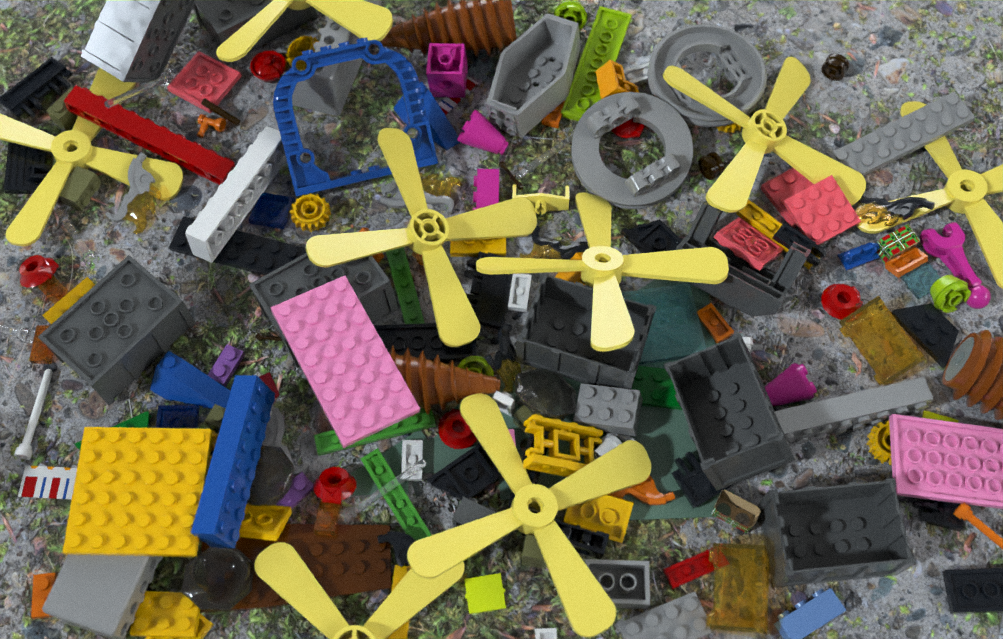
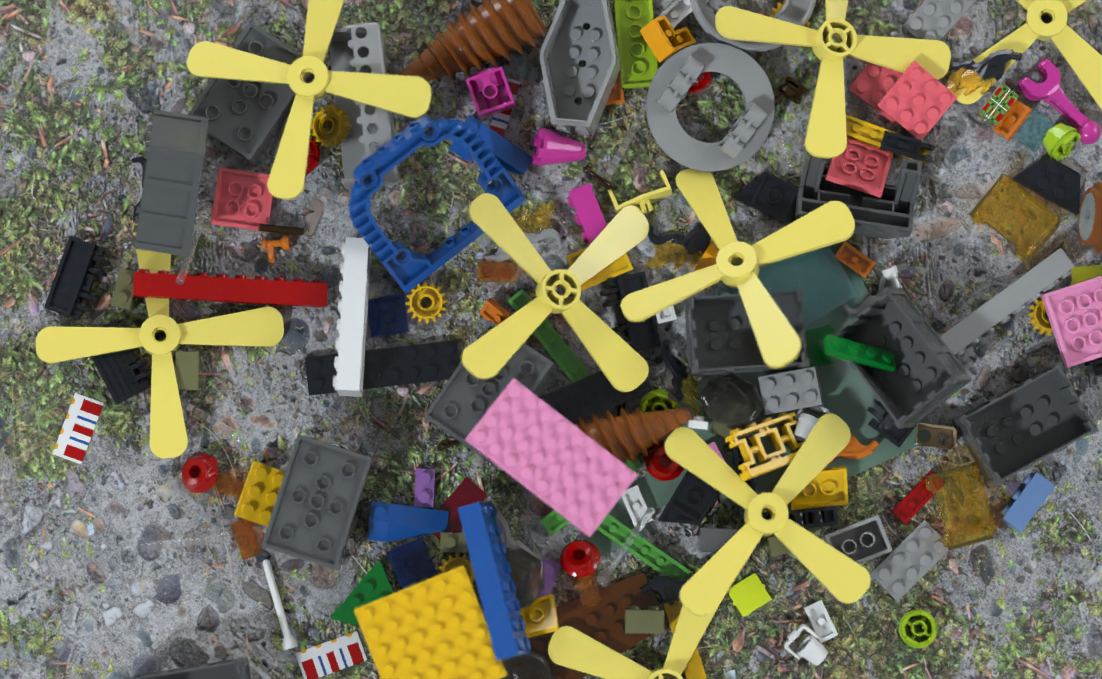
camera: 25 degrees left, 20 degrees up
(140, 197) = (253, 355): piece -> none
(366, 570) = (644, 621): none -> olive piece
(384, 212) = (496, 272): none -> clear orange plate
(690, 391) = (859, 353): none -> green plate
(790, 386) = (943, 299): dark pink cone -> none
(841, 300) = (964, 187): red piece -> none
(859, 255) = (965, 130): blue hinge -> none

